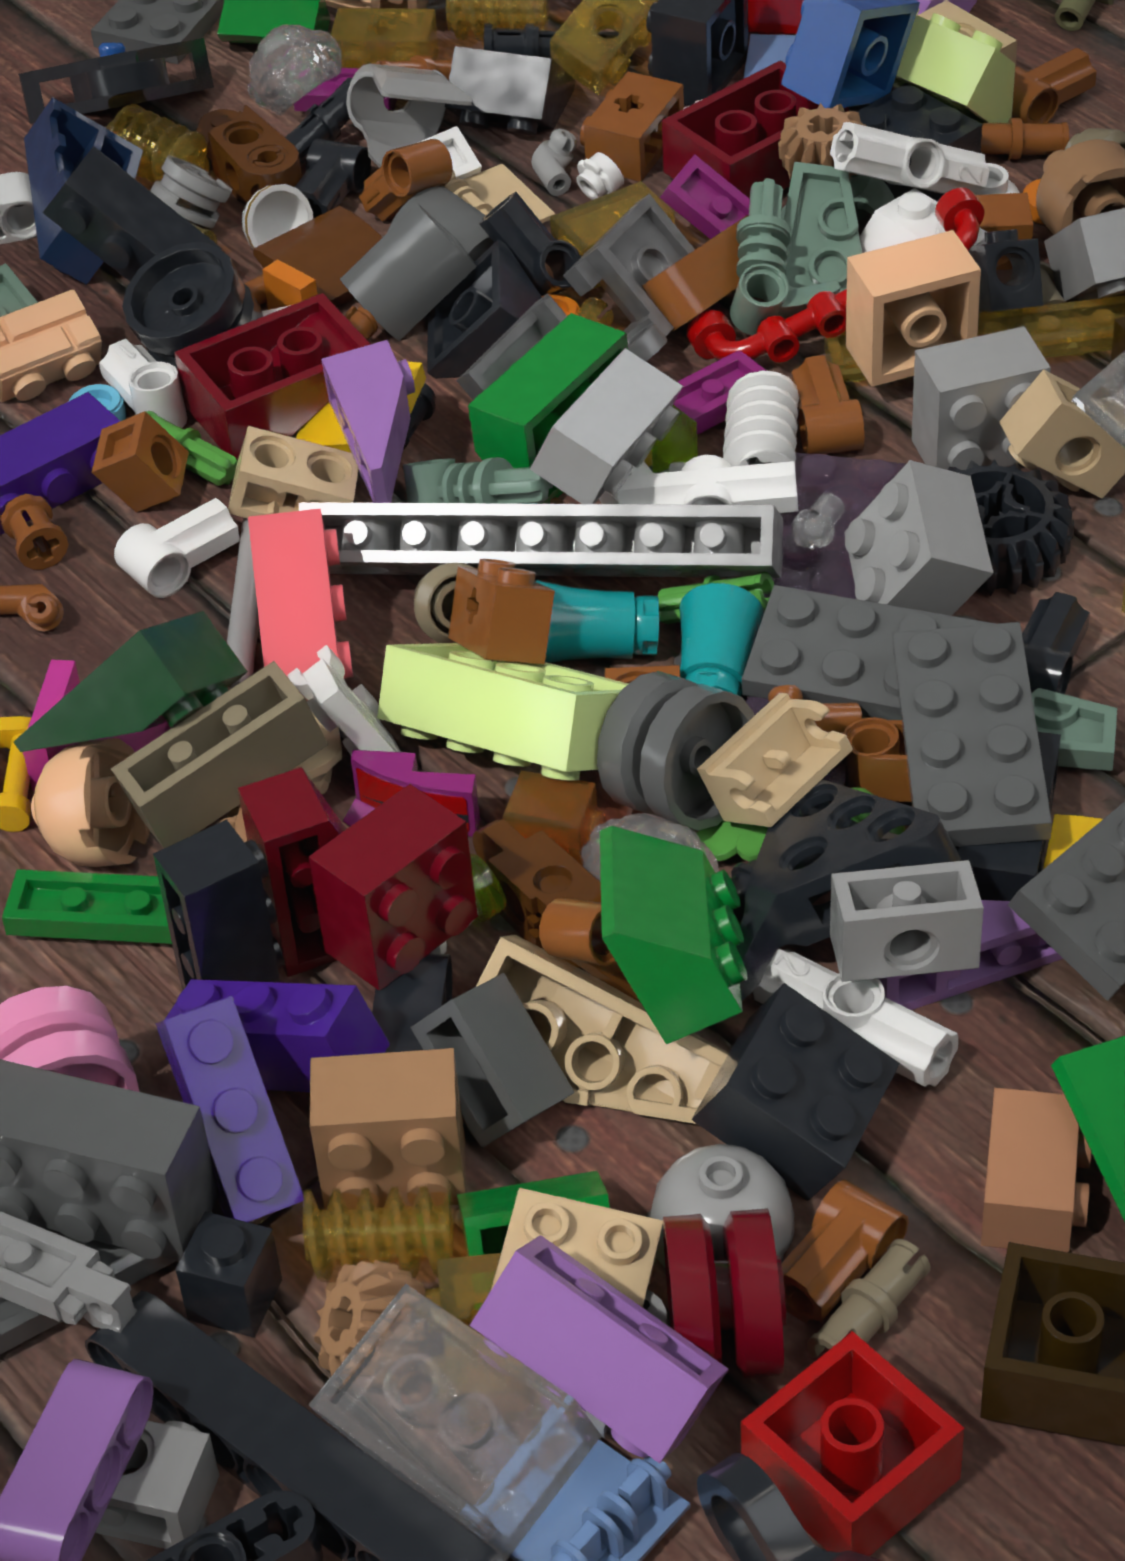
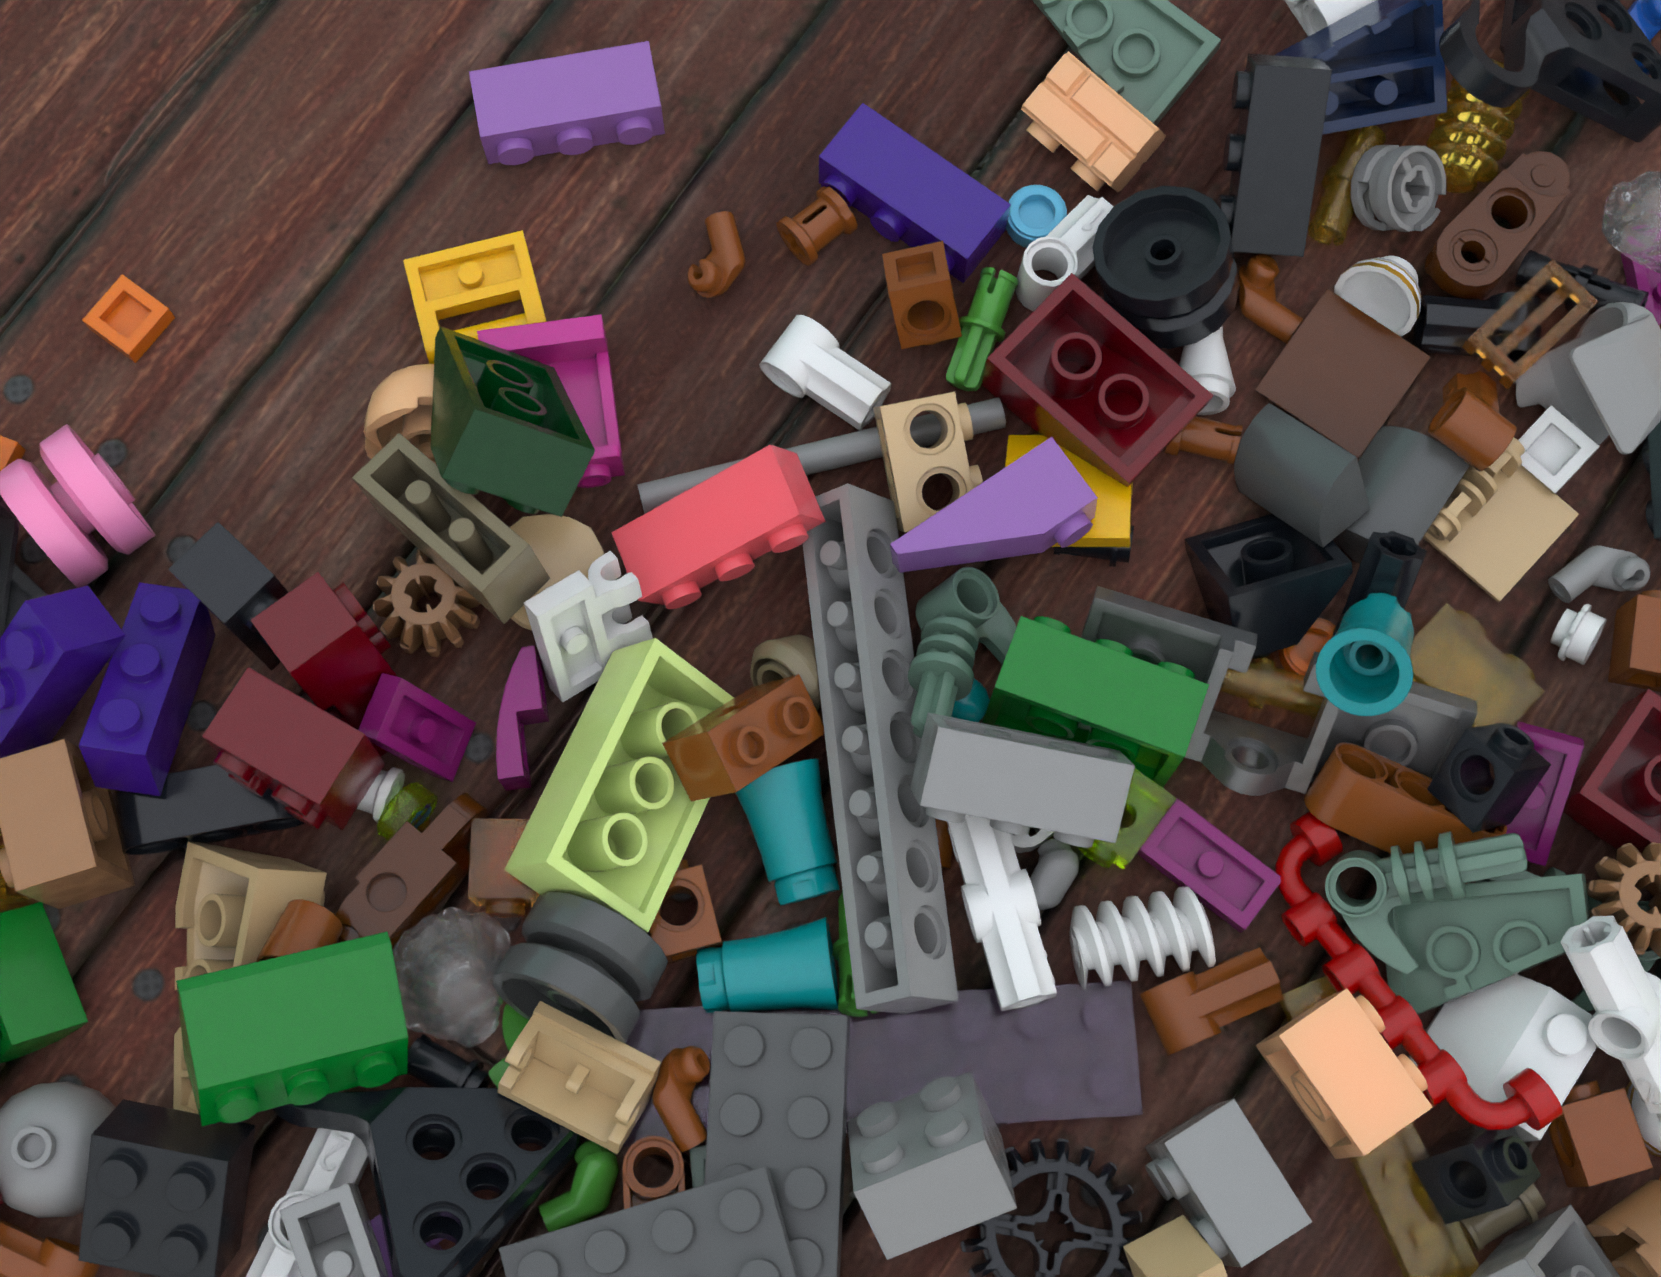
camera: 70 degrees right, 30 degrees up
(86, 907) = (322, 473): green plate -> none
(286, 285) = (1257, 355): orange tile -> none
(333, 139) = (1496, 358): none -> clear orange tile
(499, 1057) = (167, 896): dark grey brick -> none
(587, 212) = (1368, 659): none -> teal plant
(703, 228) = (1466, 780): none -> black brick
(815, 525) = (978, 1032): clear arm -> none

